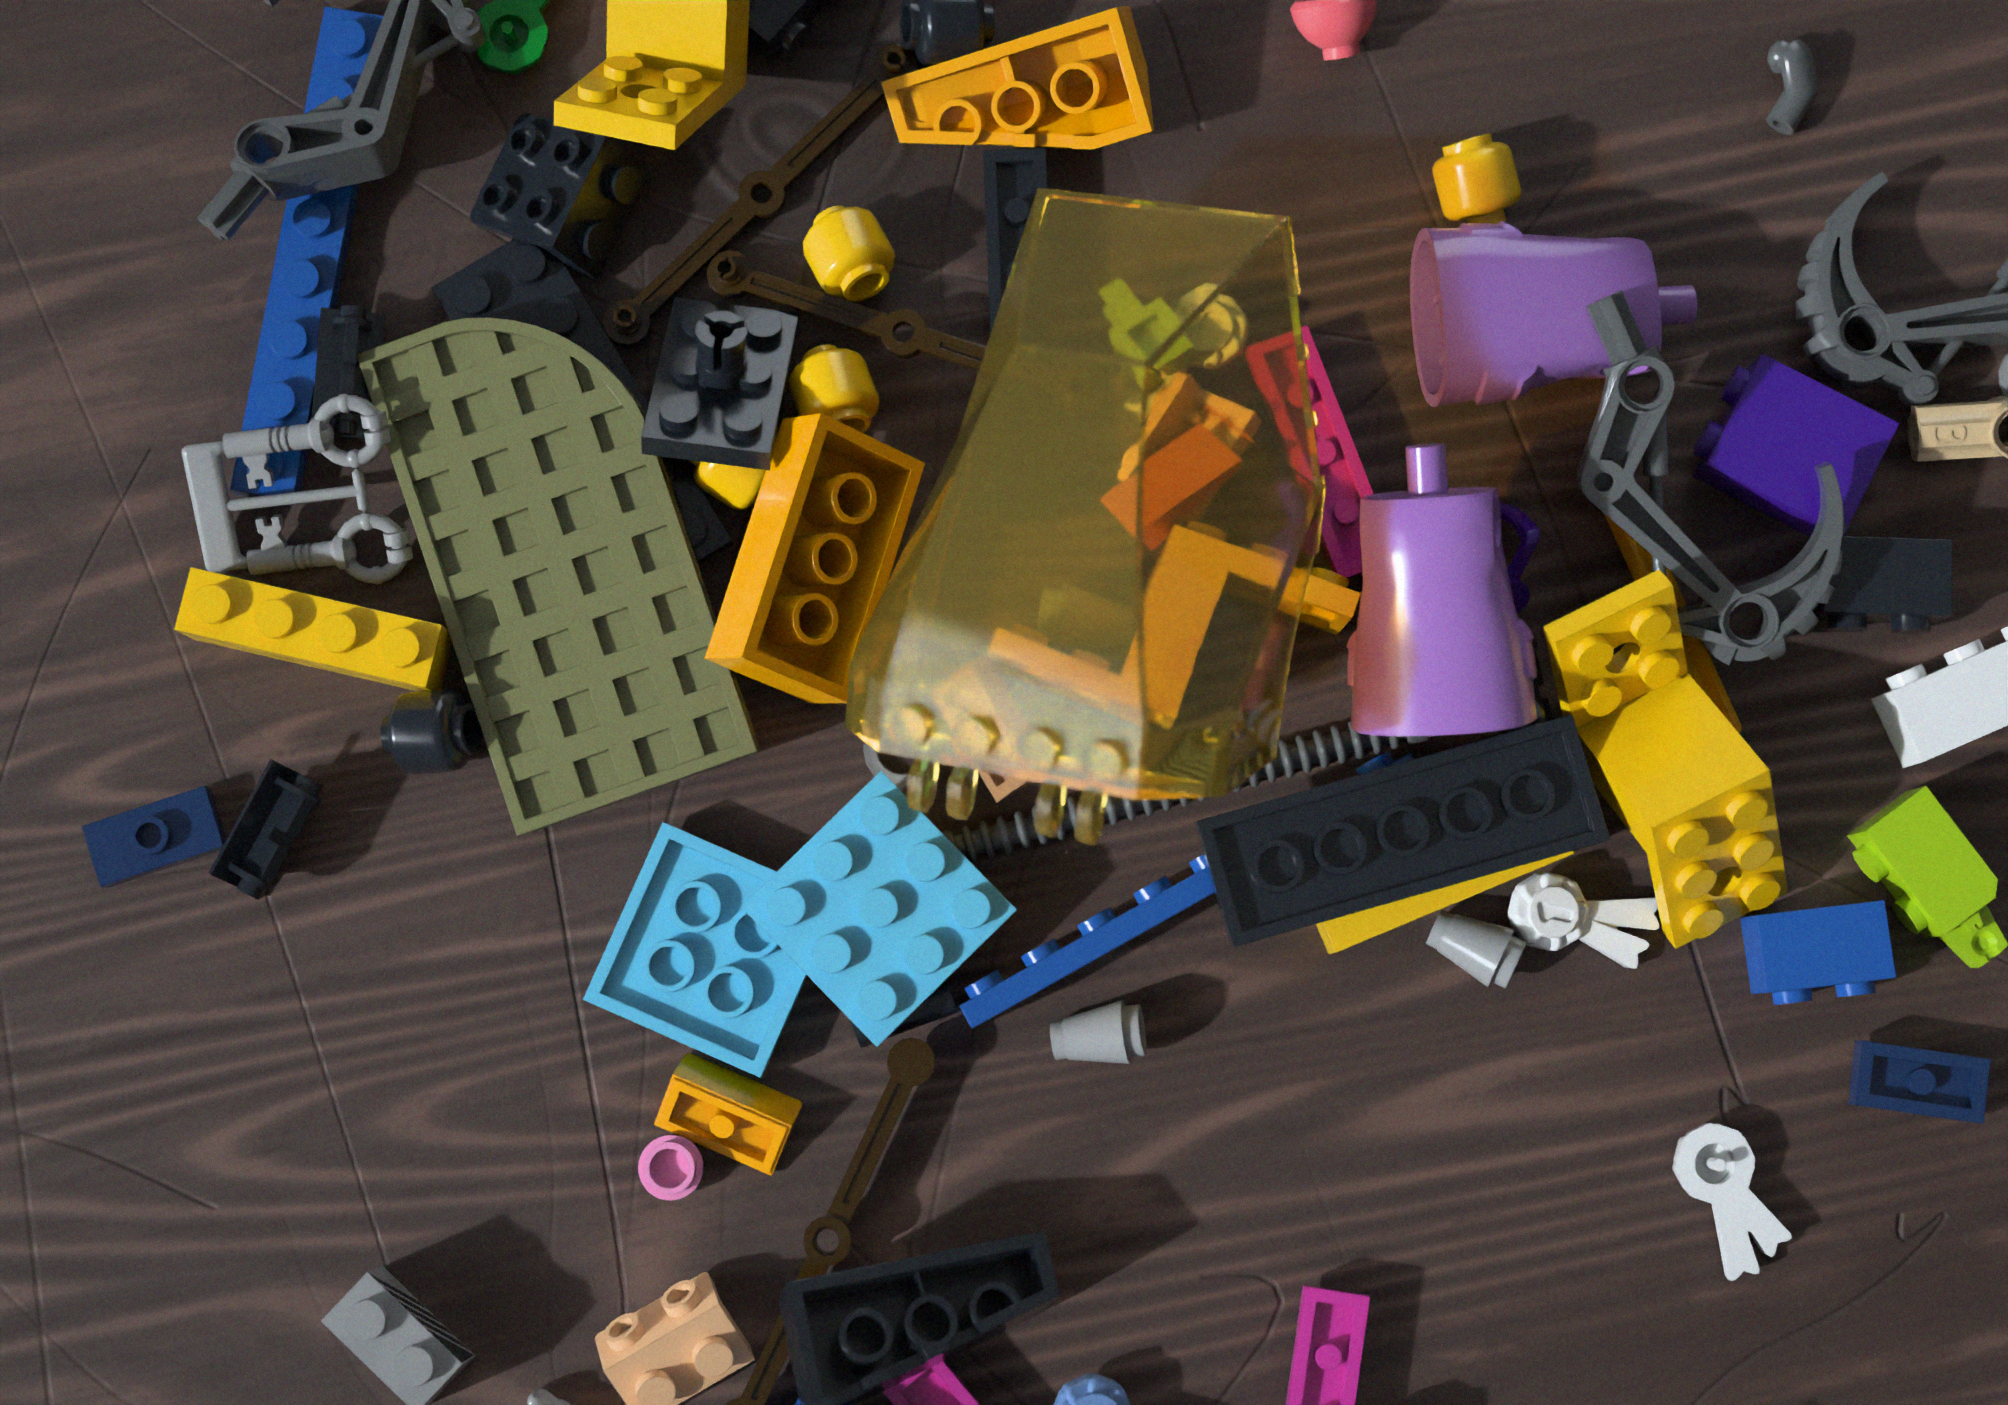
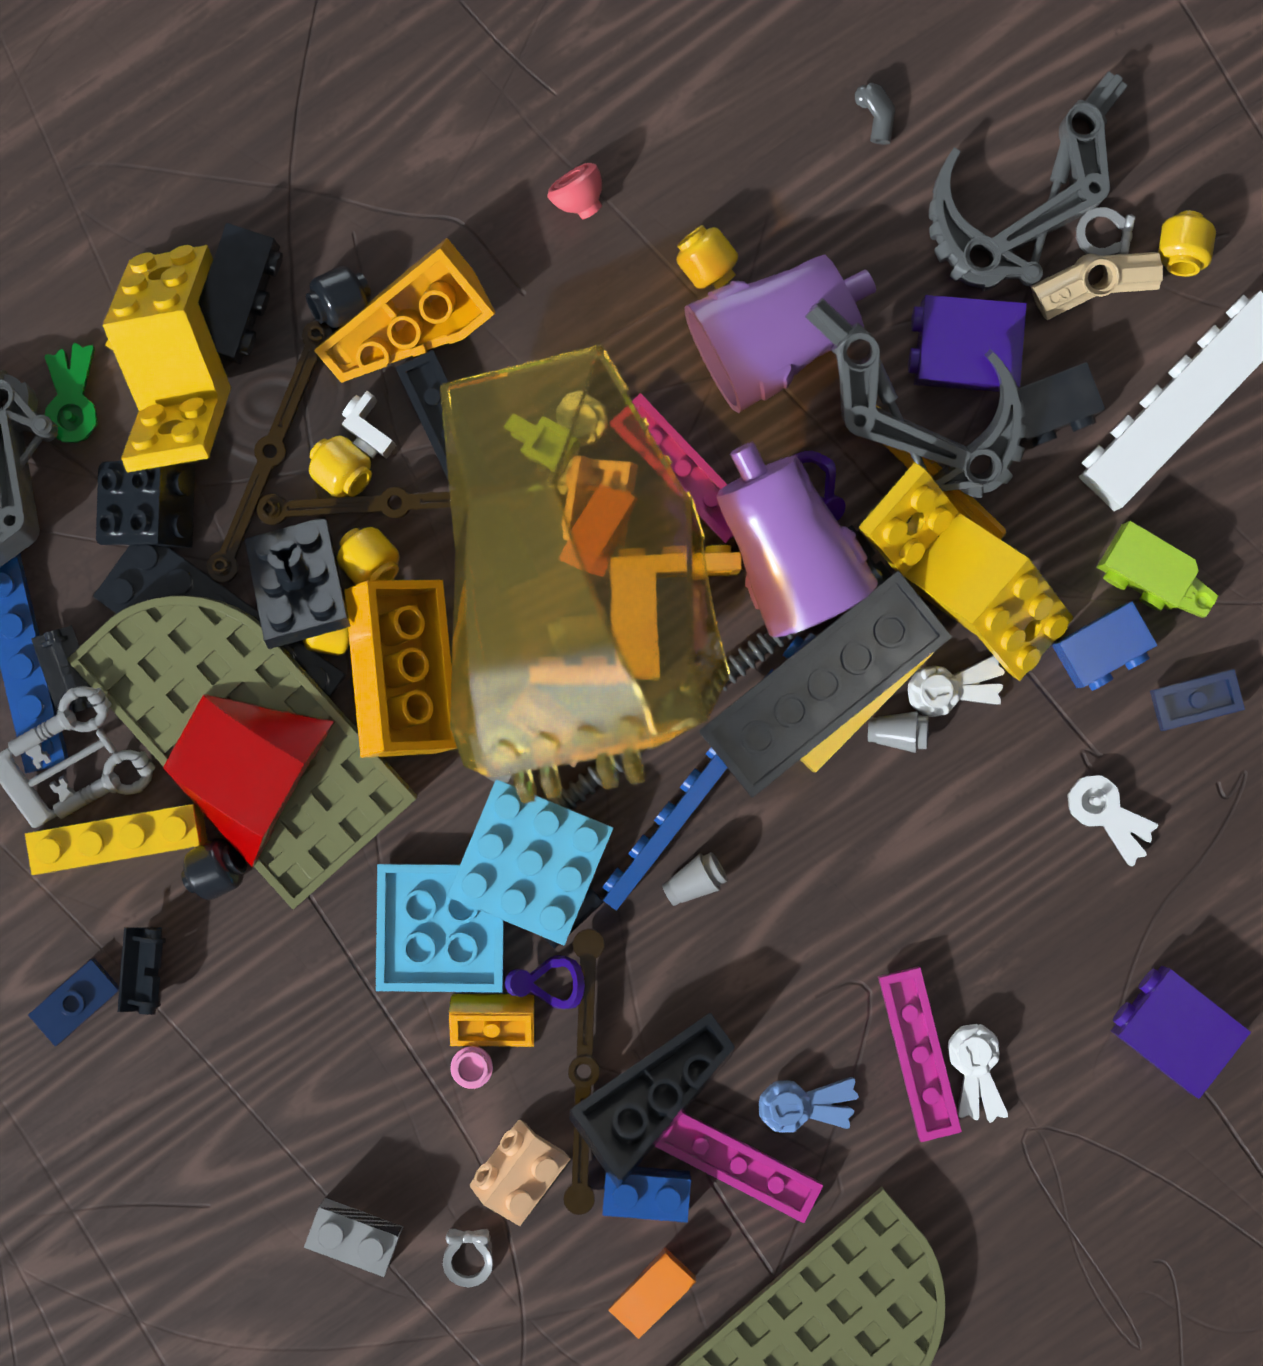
camera: 20 degrees left, 5 degrees up
(536, 604) = (244, 766): none -> red wedge
(792, 1076) = (521, 983): none -> dark purple piece
(904, 224) = (368, 437): none -> white bracket

